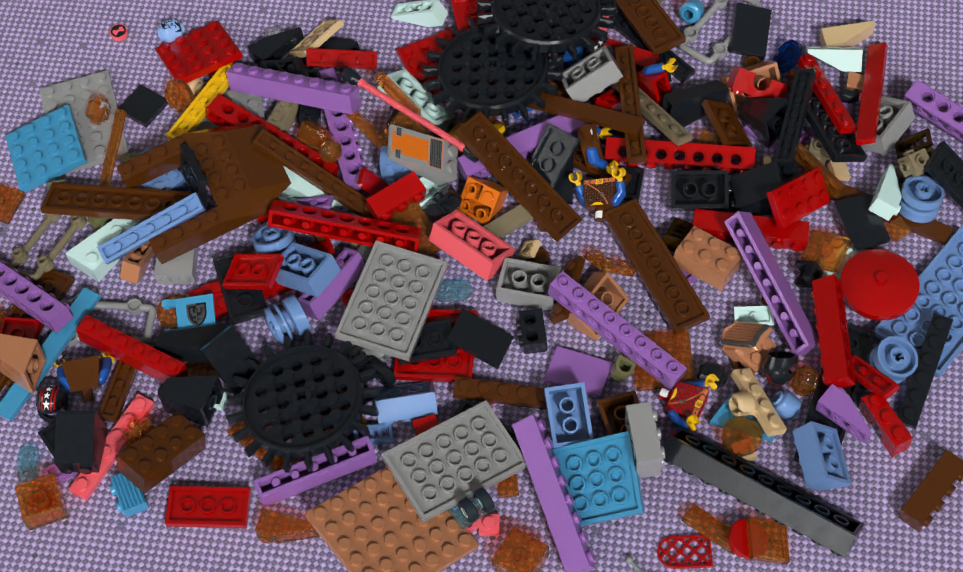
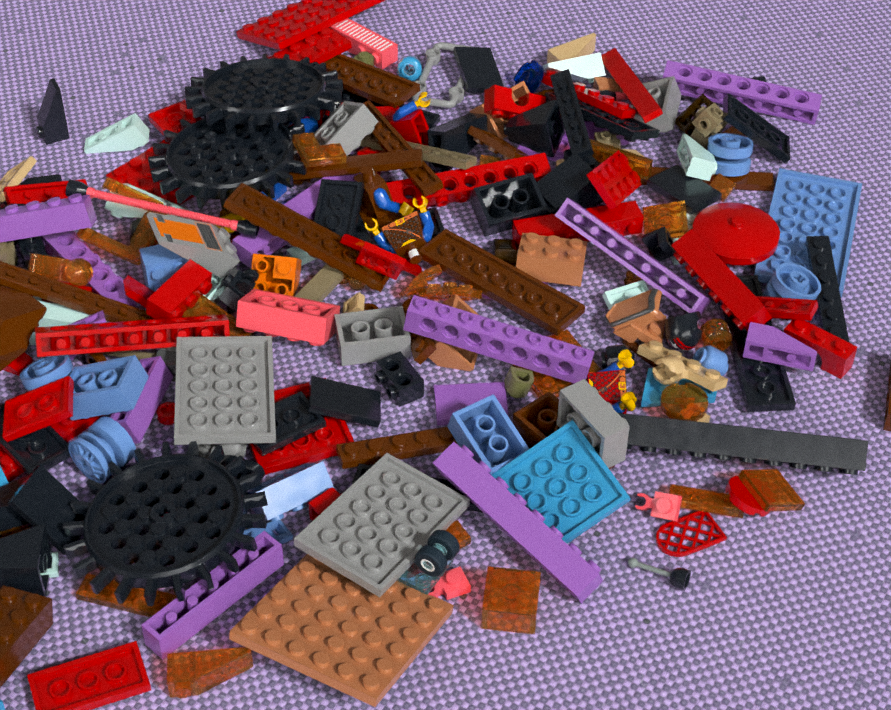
camera: 30 degrees left, 15 degrees down
(453, 292) = (289, 370): clear light blue plate -> none
(557, 97) = (317, 155): none -> clear orange plate
(568, 211) = (380, 259): none -> red plate
(589, 243) = (420, 281): none -> clear orange slope
(675, 522) = (663, 505): none -> coral plate
(821, 457) = (777, 392): medium blue slope -> none

